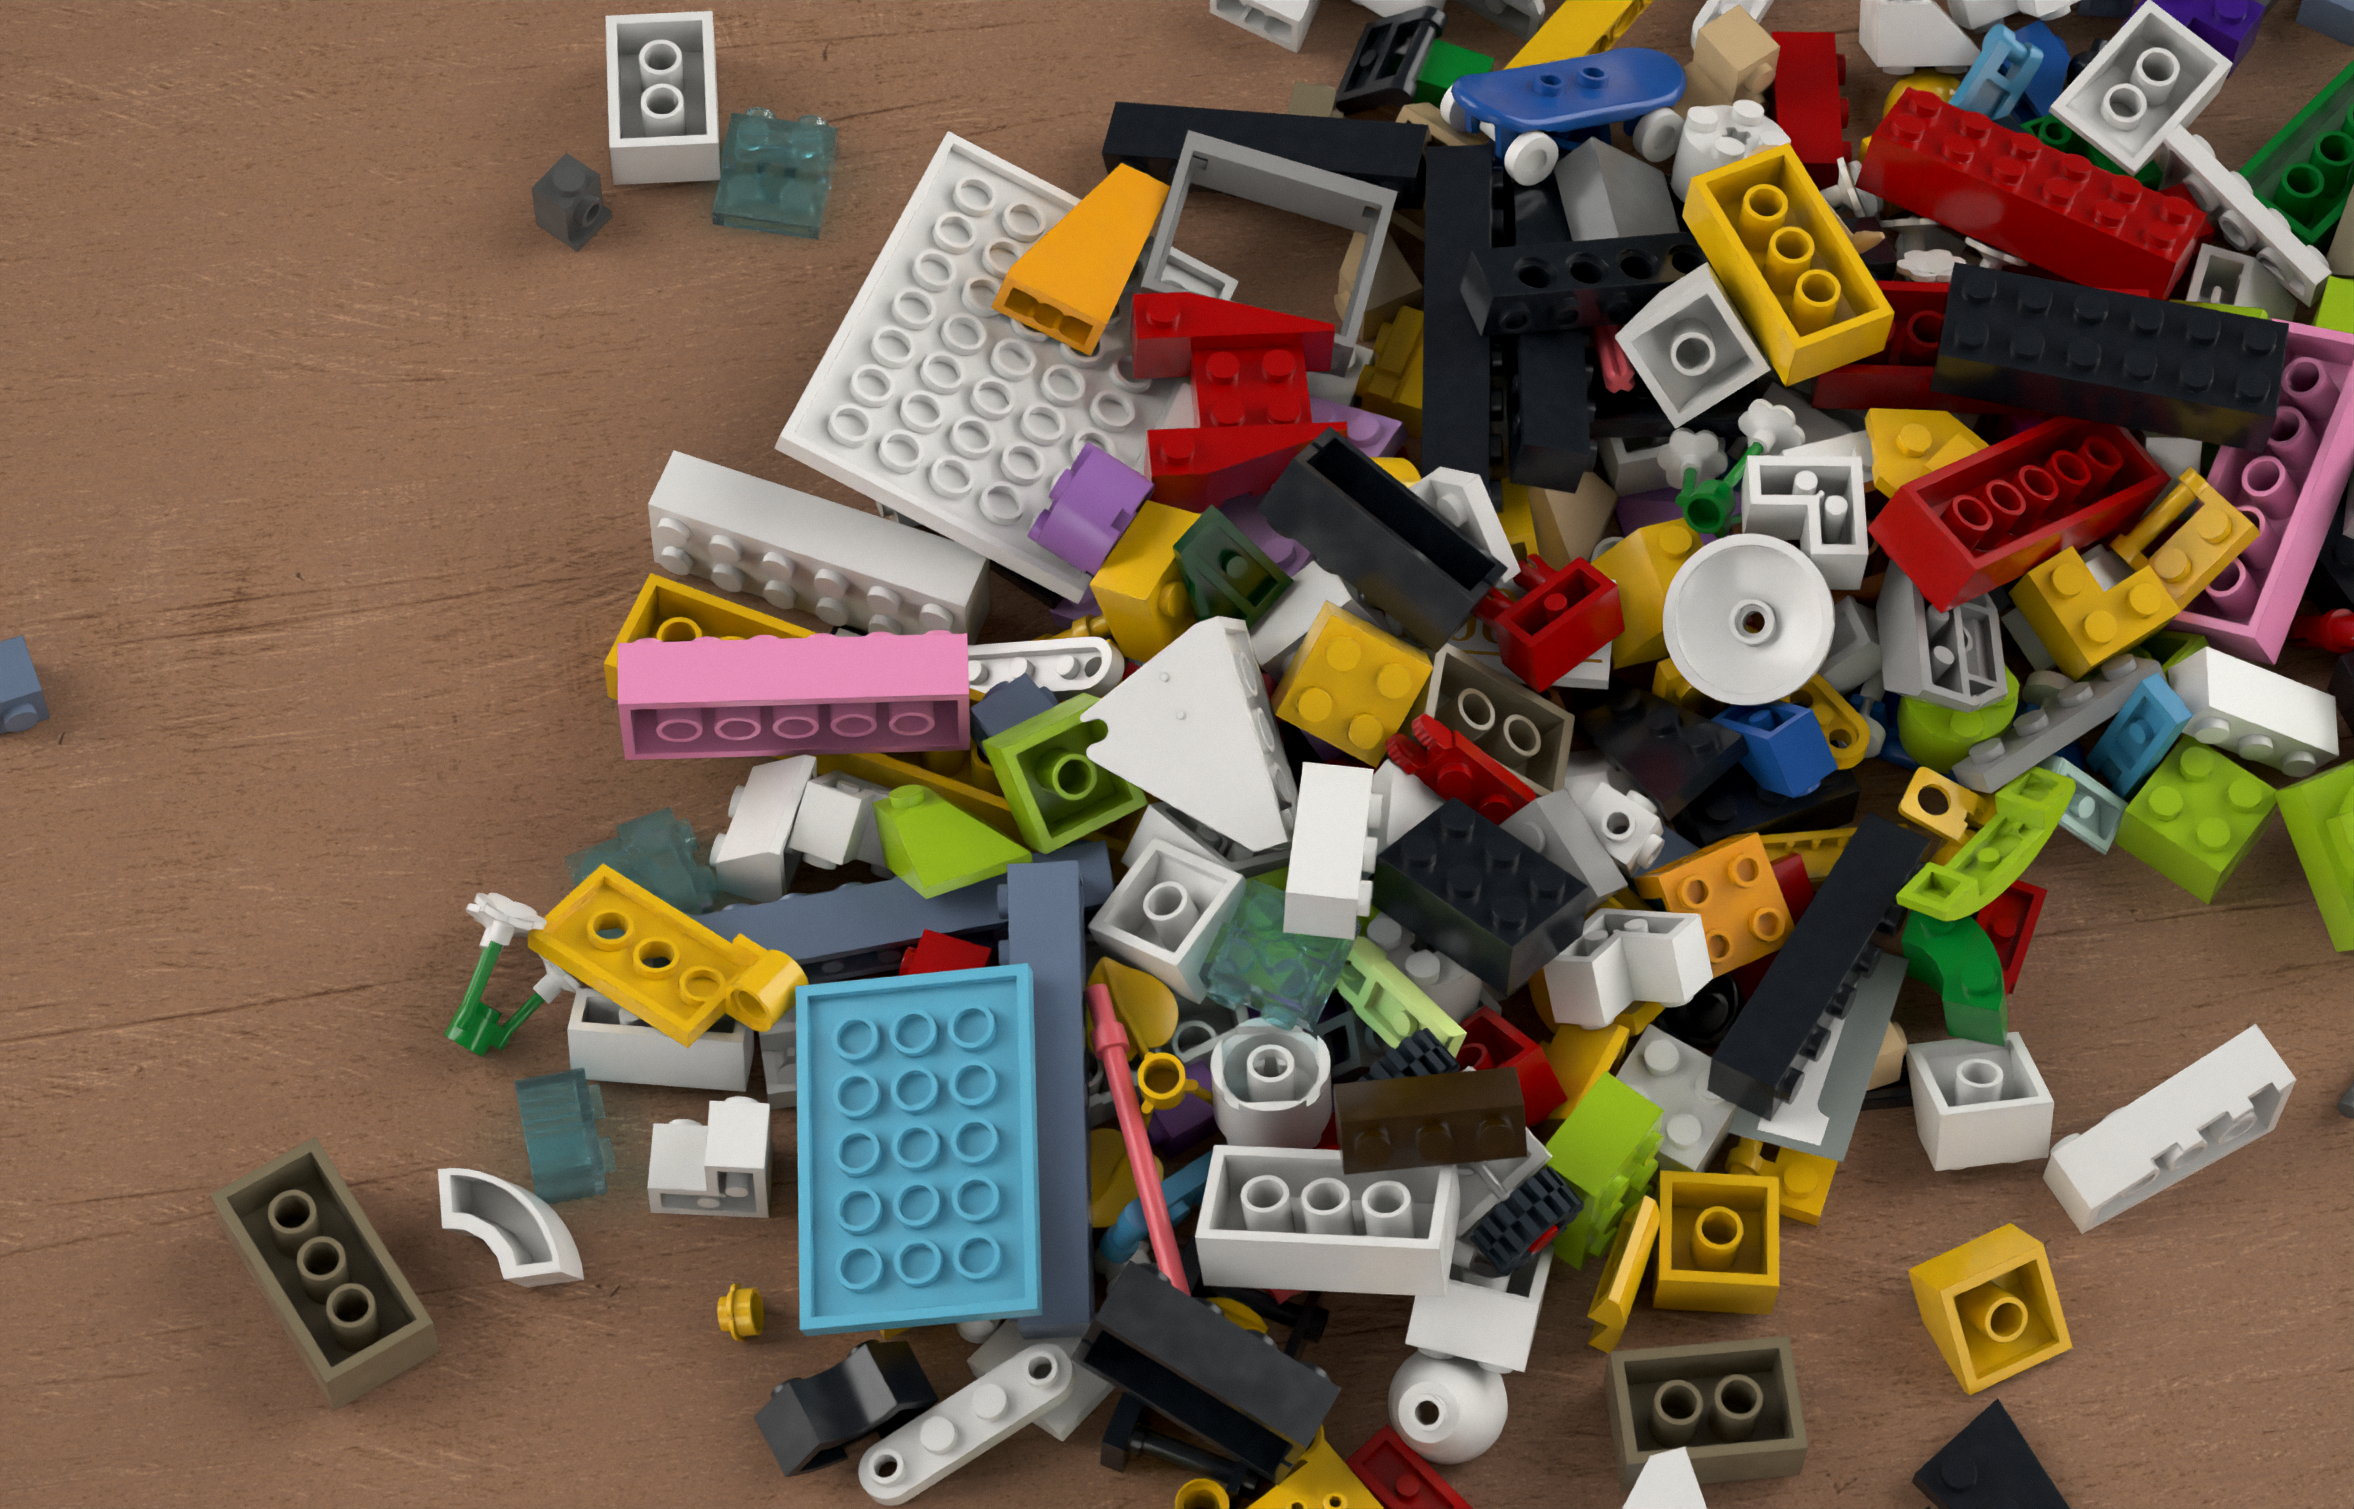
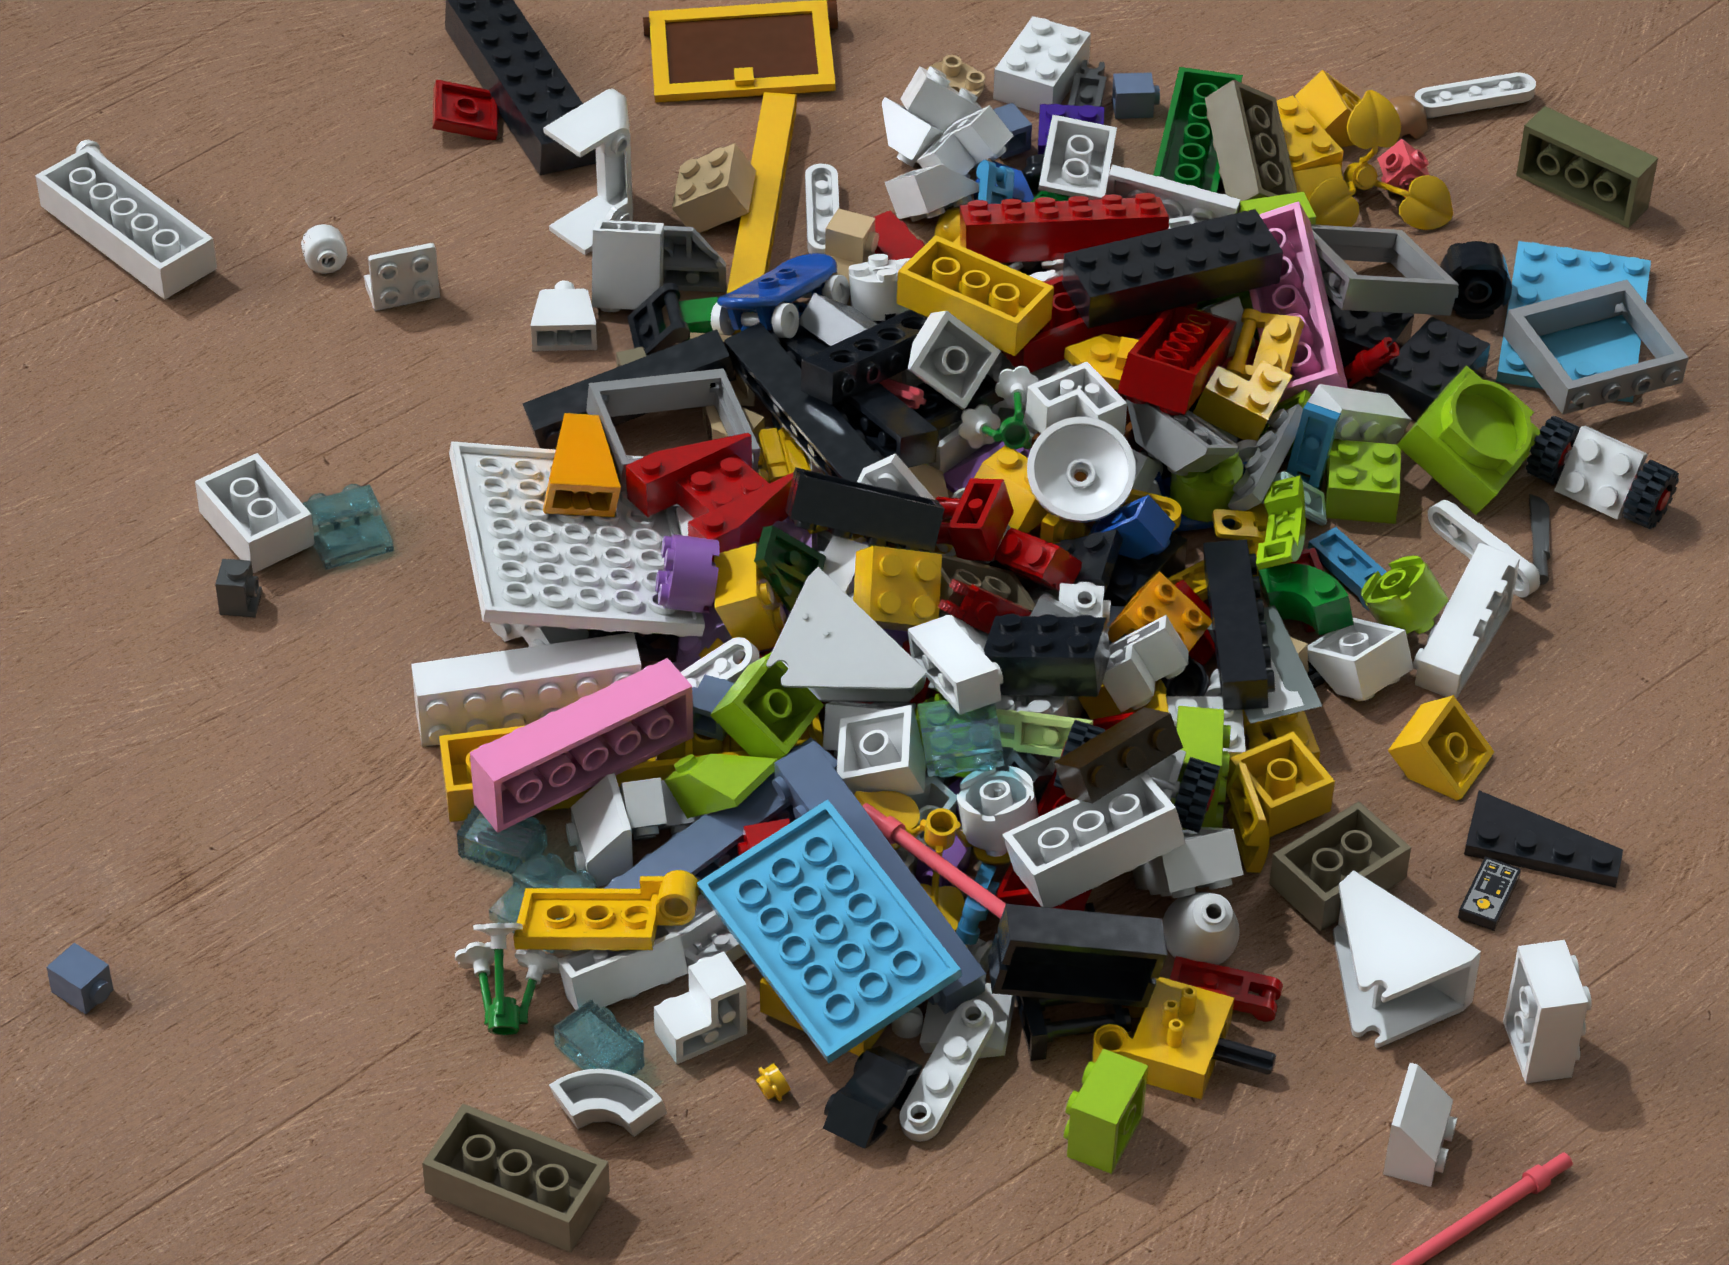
camera: 30 degrees left, 15 degrees down
(651, 782) = (501, 850): none -> clear light blue brick
(1605, 725) = (1037, 559): none -> red brick
(2085, 948) = (1345, 560): none -> dark azure plate
(2104, 1044) = (1405, 595): none -> lime brick
(2291, 1001) = (1466, 535): none -> white plate

